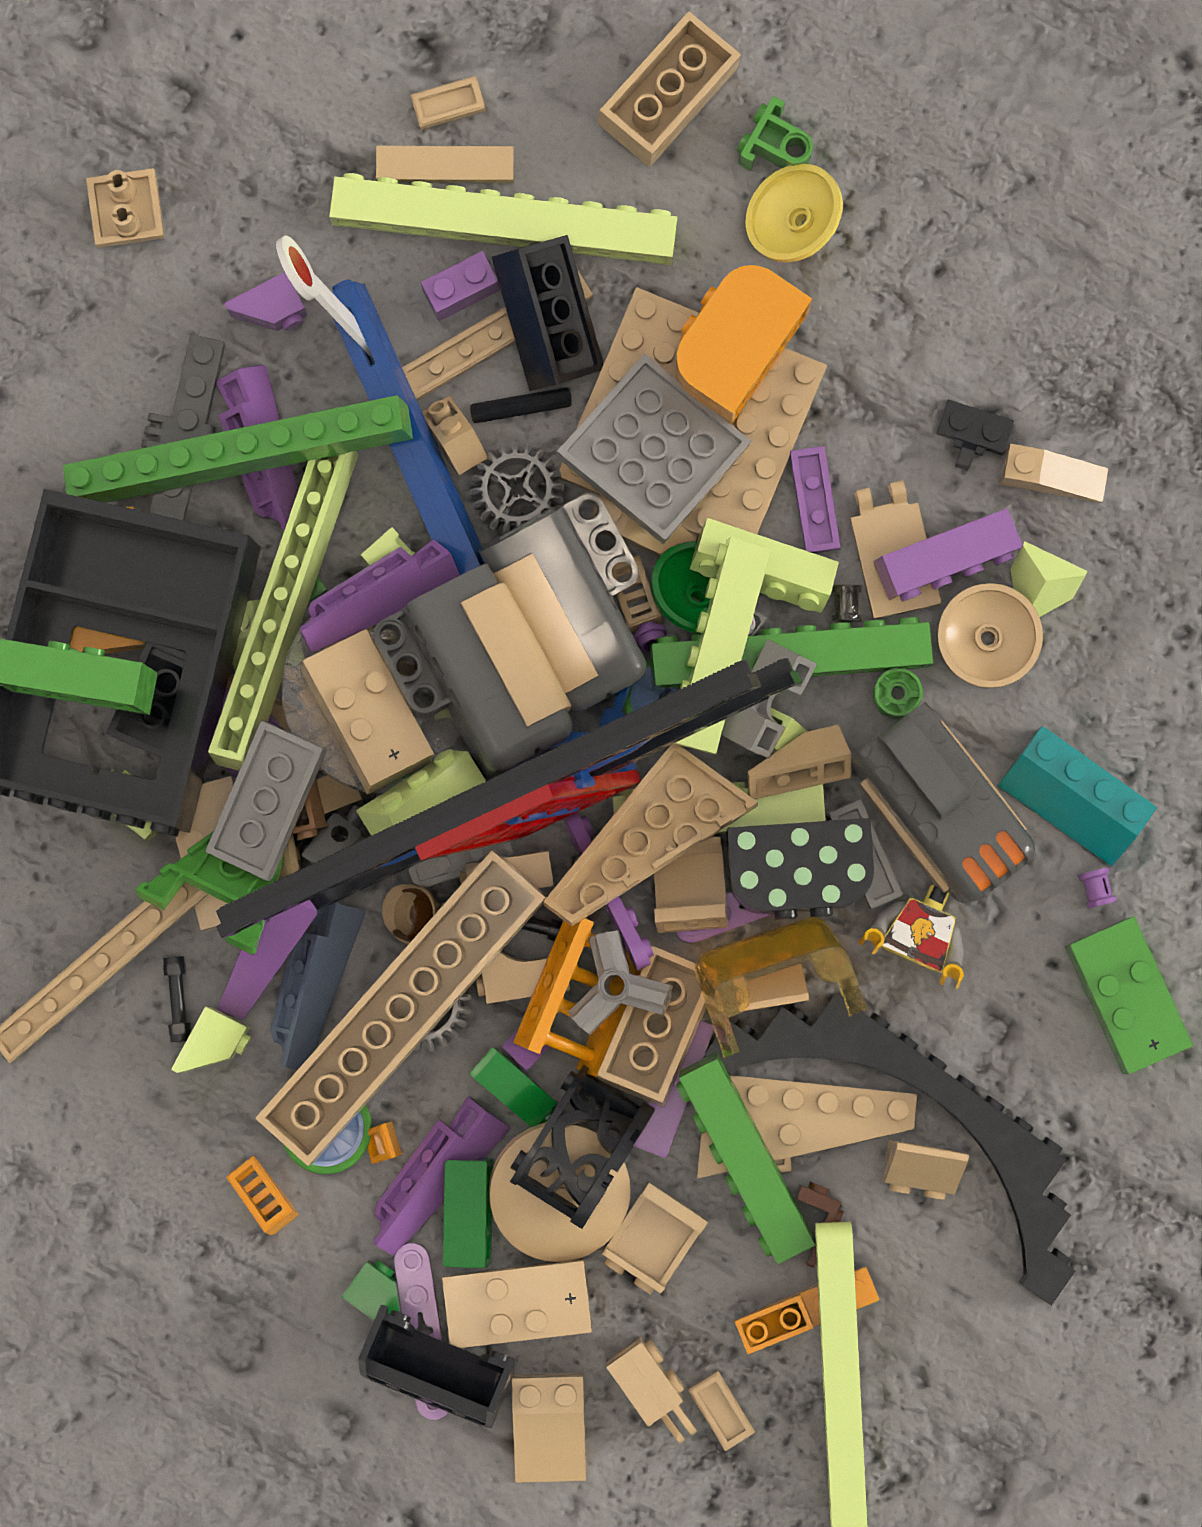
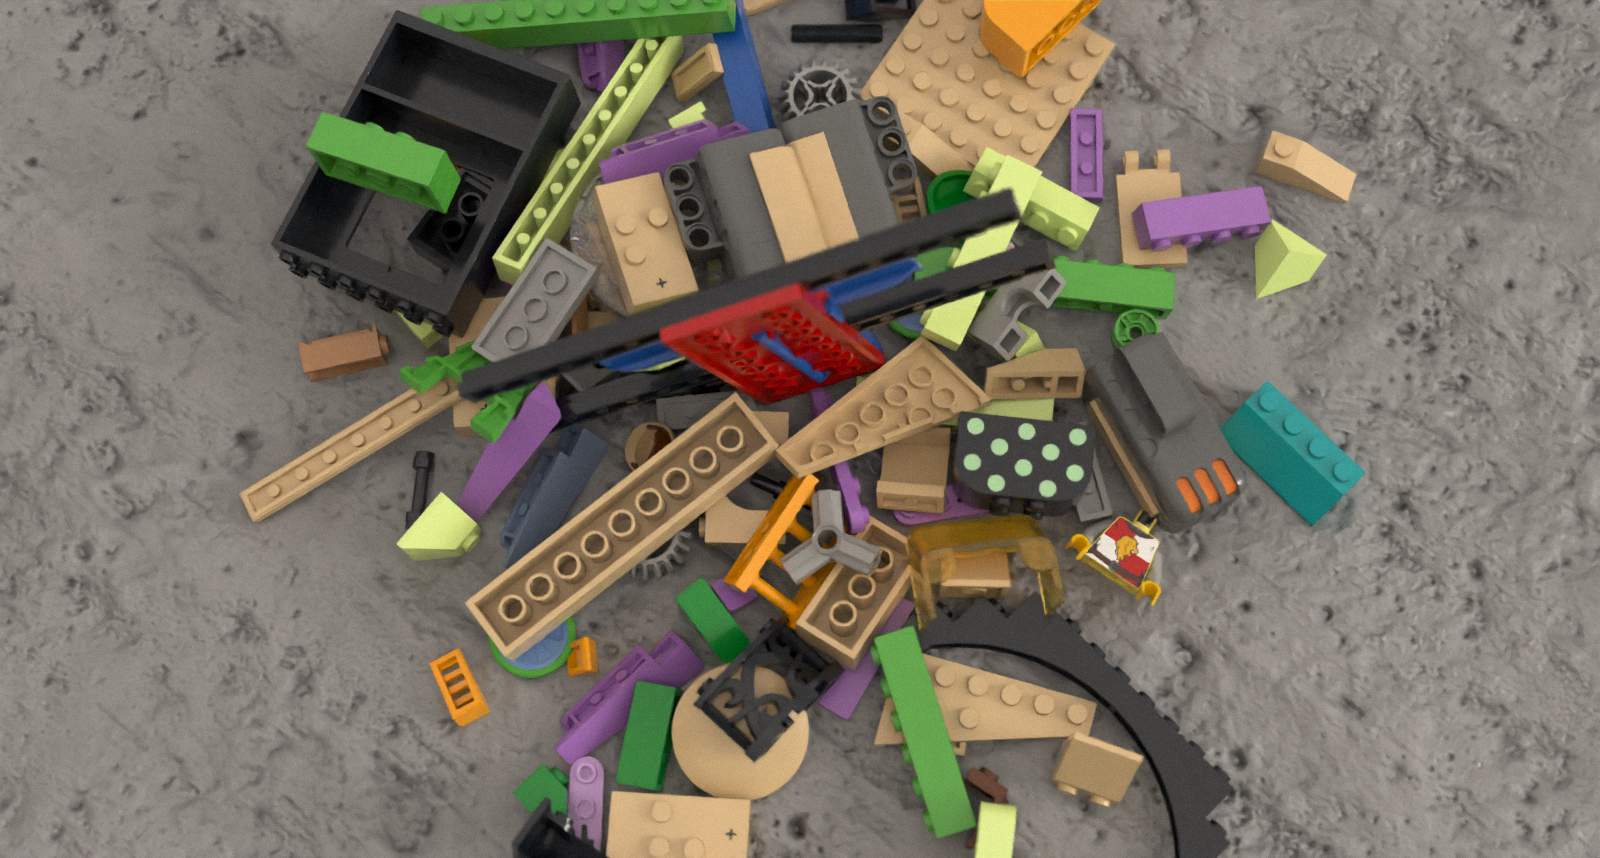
camera: 10 degrees right, 10 degrees down
(65, 866) = (344, 354): none -> medium nougat window
(378, 483) = (697, 72): none -> tan tile
(454, 435) = (773, 46): tan slope -> none
(653, 449) = (948, 80): light grey plate -> none
(653, 1239) = (822, 794): tan panel -> none
(846, 603) = (1101, 245): clear smoke bush -> none
(973, 431) = (1238, 122): black hinge -> none
(1007, 618) = (1239, 279): tan dish -> none
(1097, 887) = (1297, 541): medium lavender bush -> none
(1128, 996) = (1314, 645): bright green brick -> none

